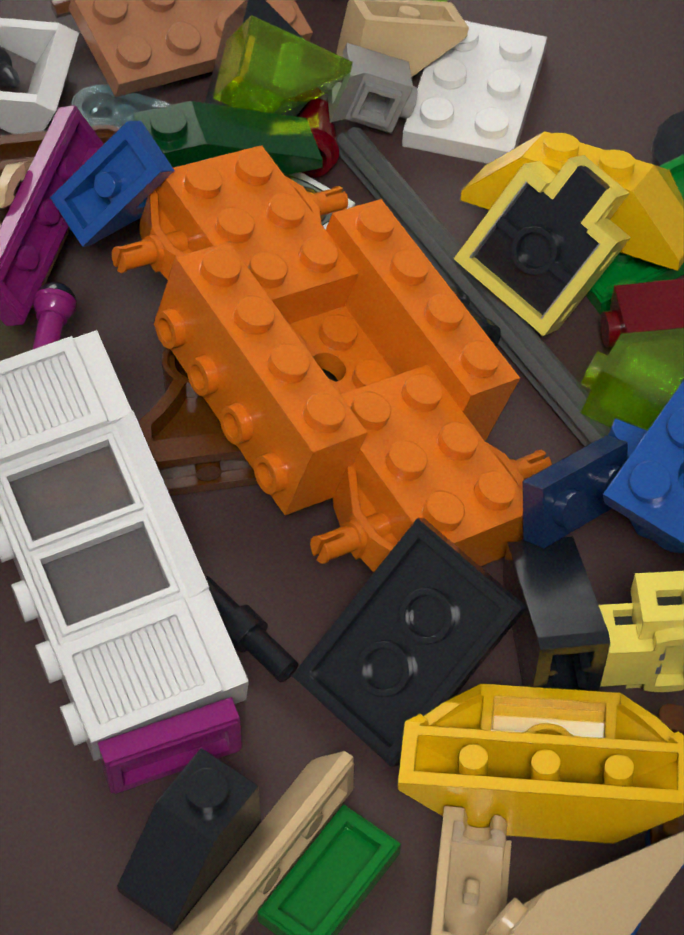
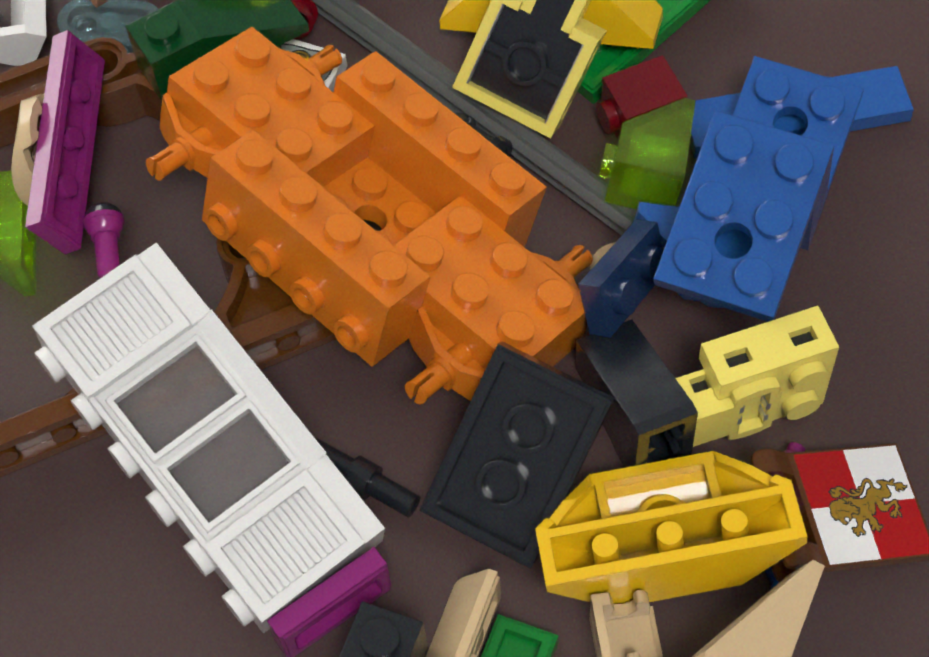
camera: 10 degrees left, 5 degrees up
(112, 184) = (127, 98): blue slope -> none

